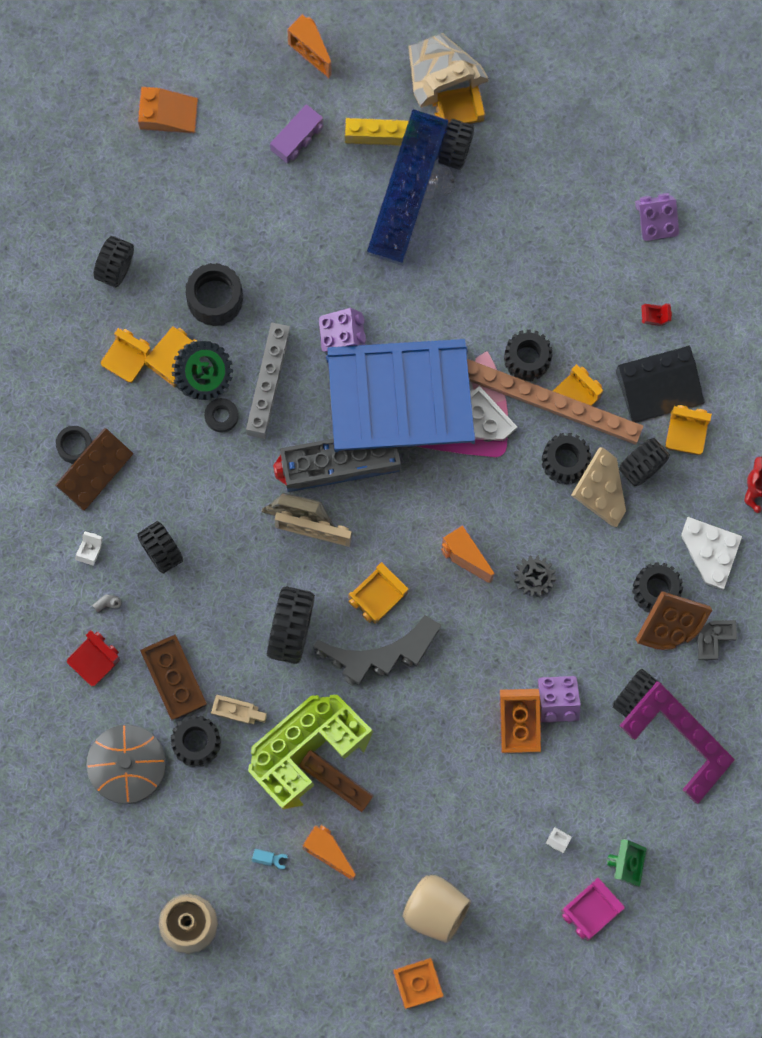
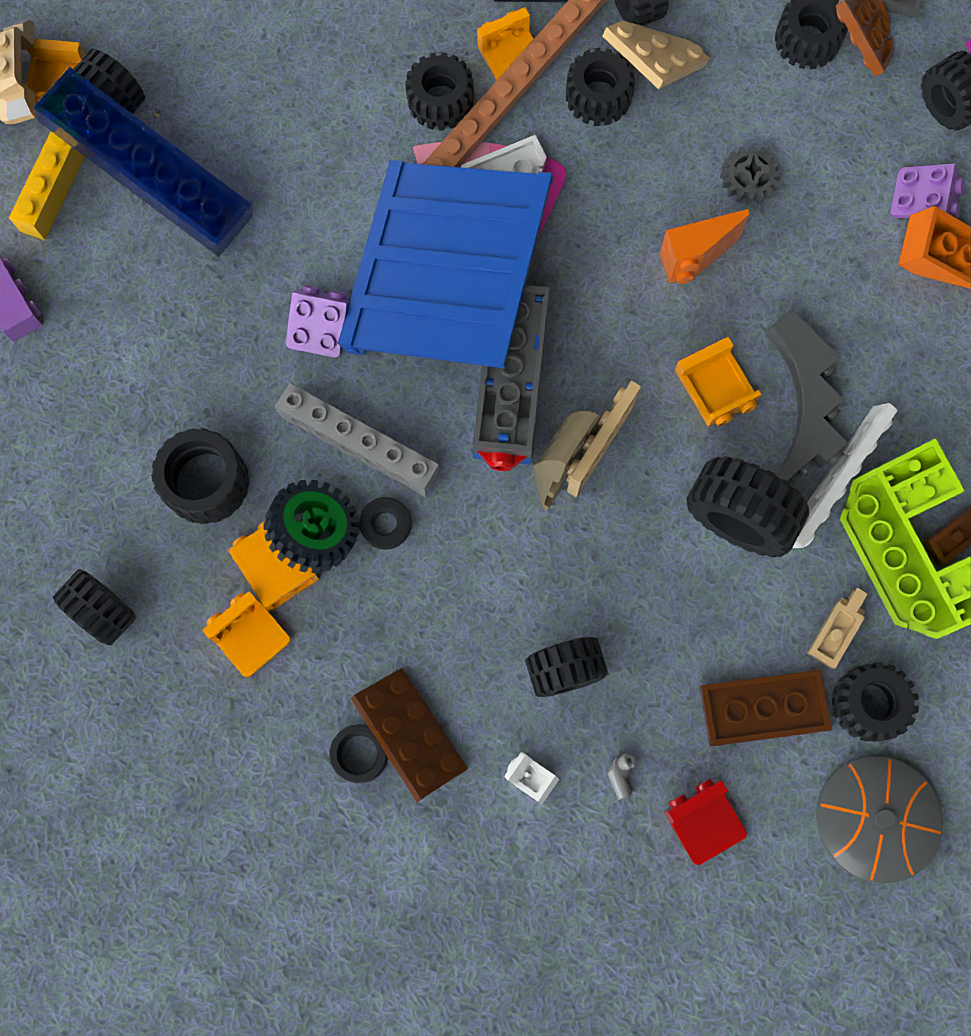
camera: 65 degrees left, 0 degrees up
(329, 684) = (834, 483): none -> white plate

